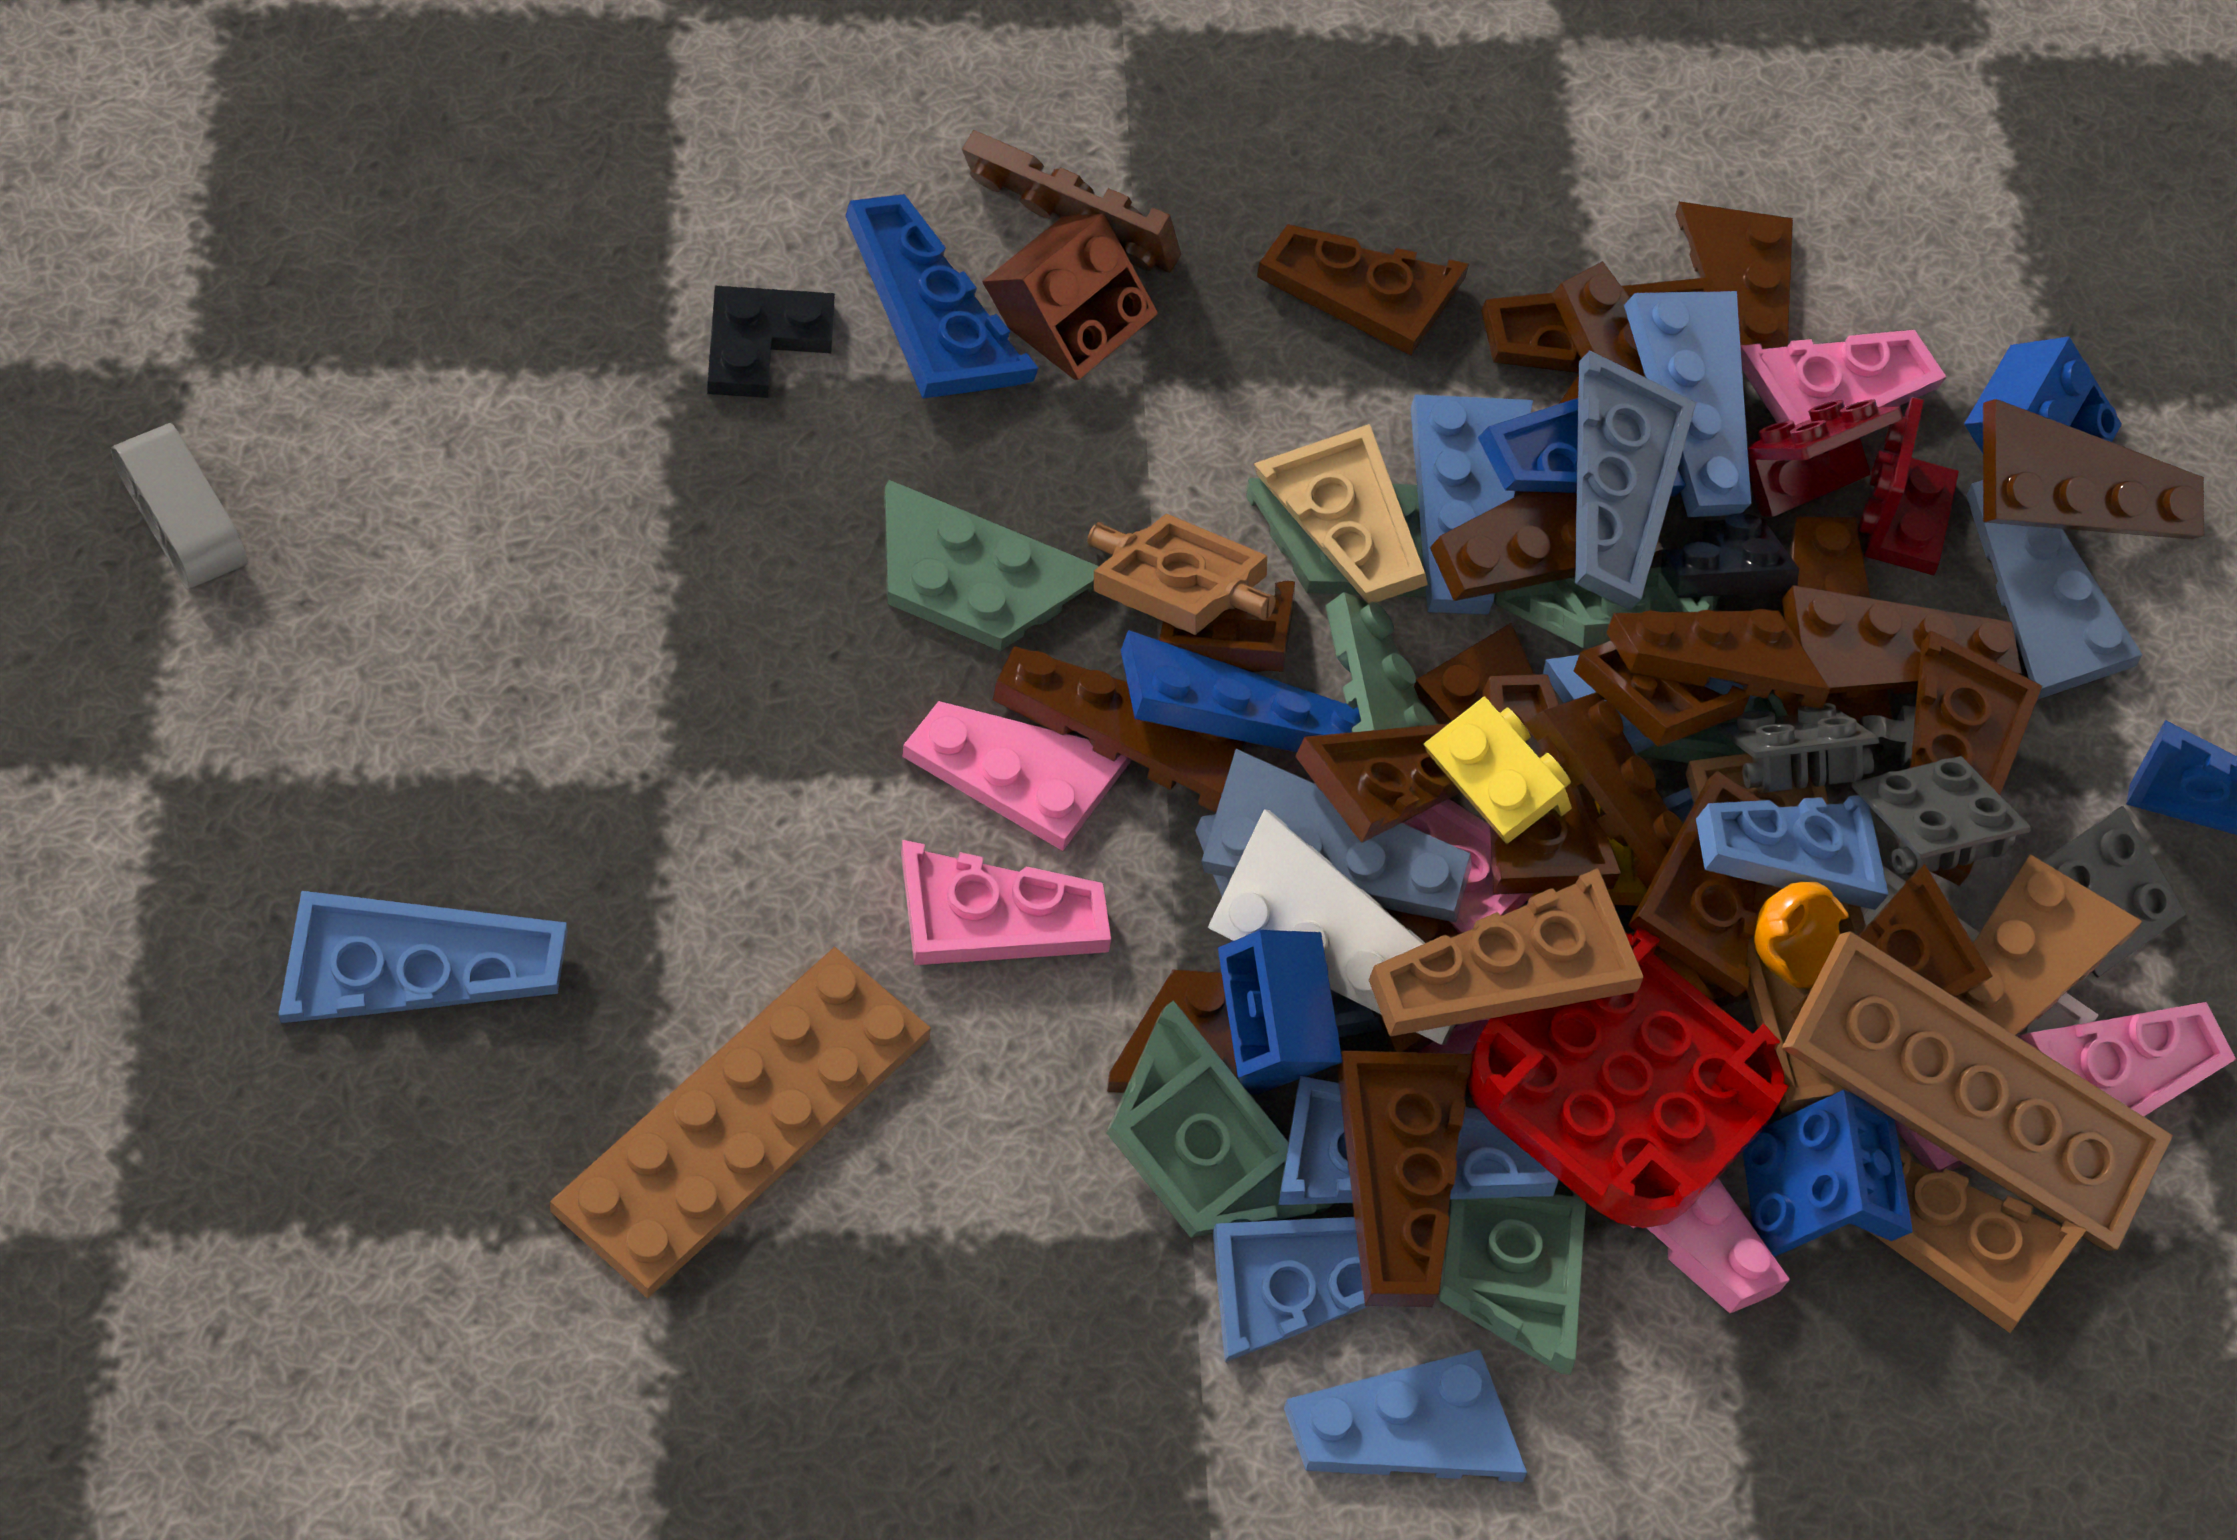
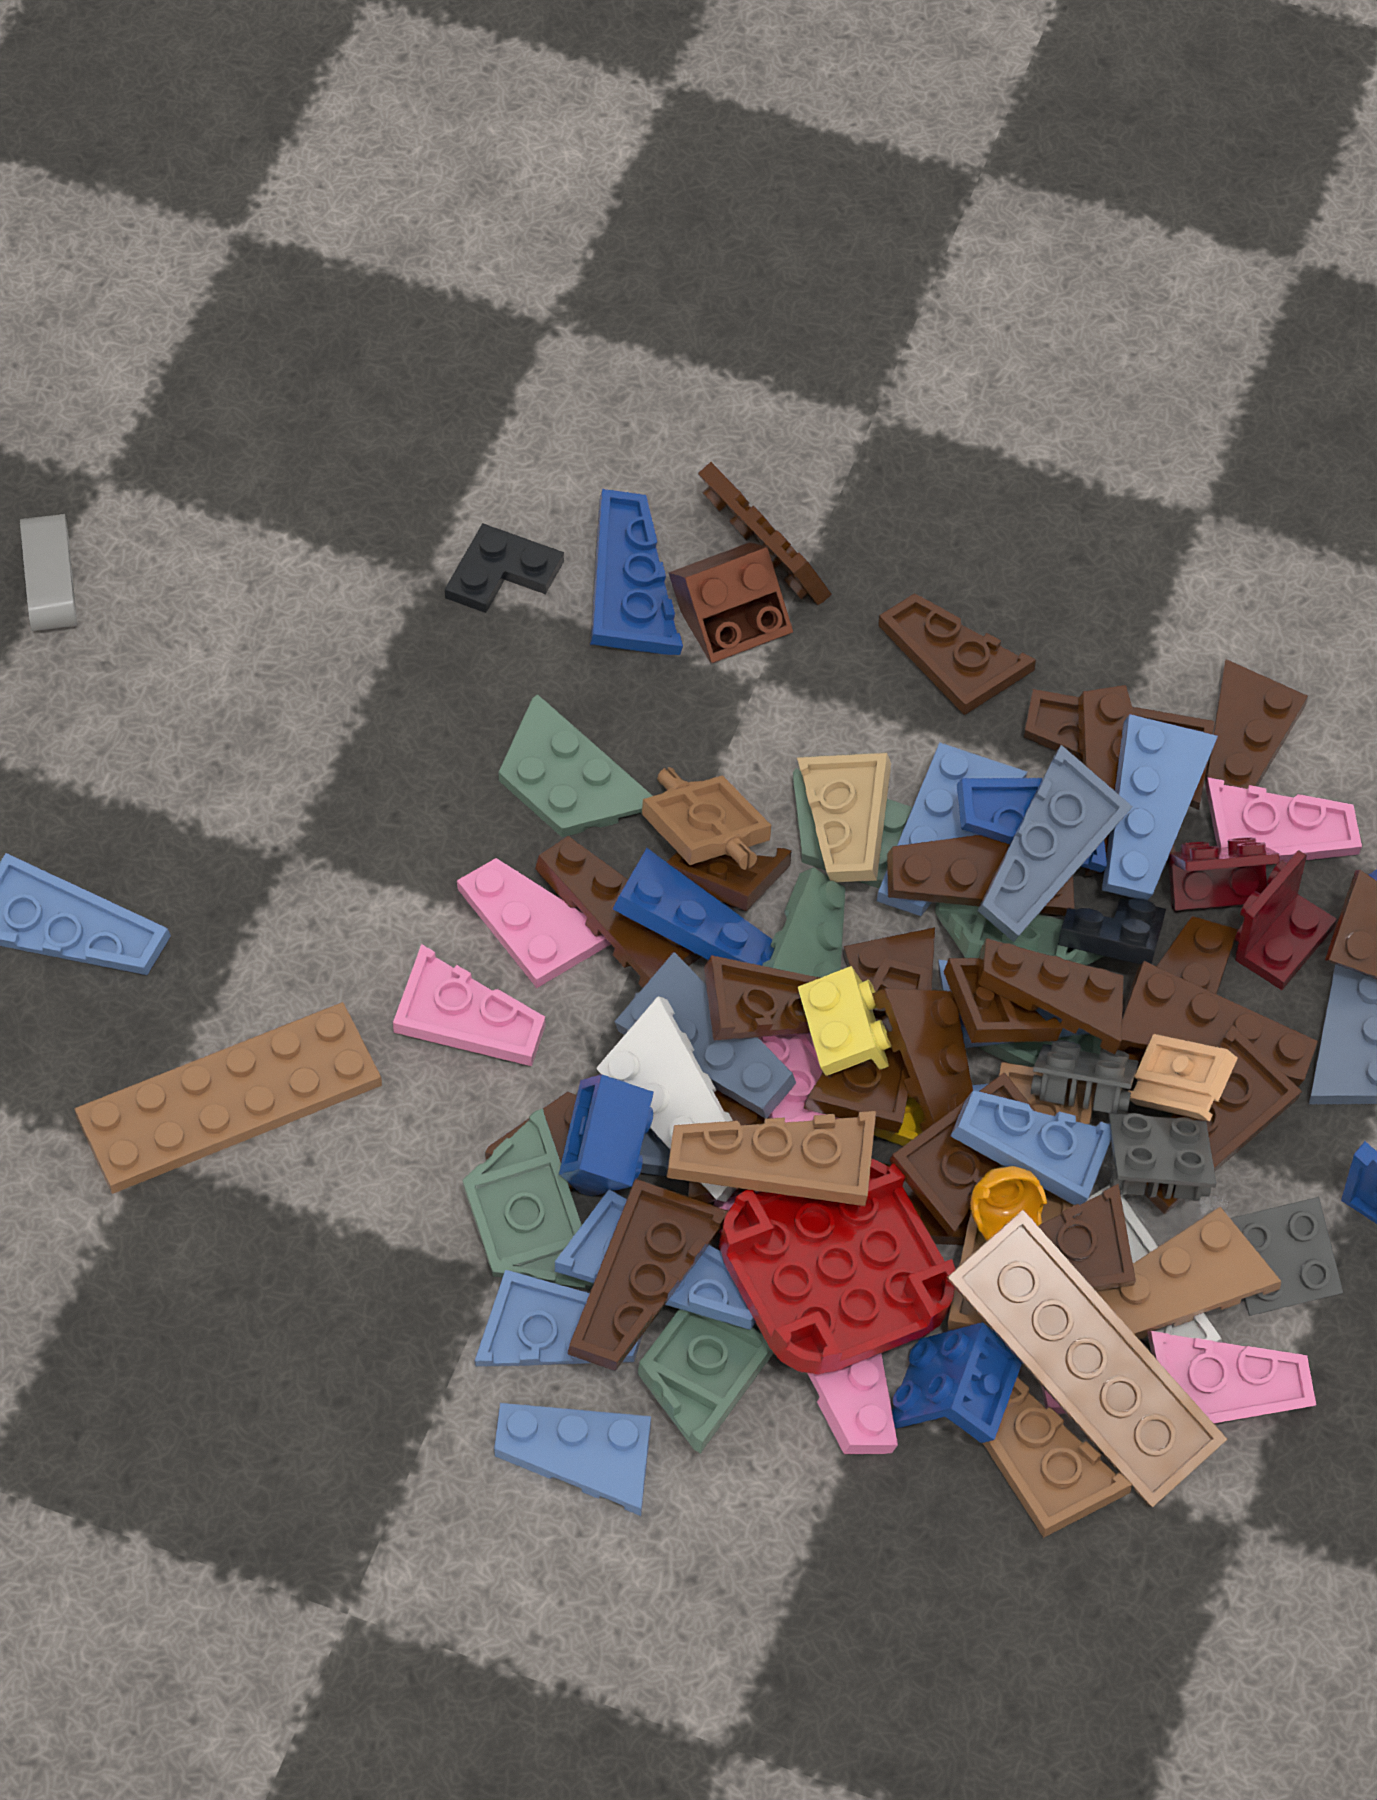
camera: 30 degrees right, 0 degrees up
(1919, 709) = (1182, 1076): none -> light nougat plate

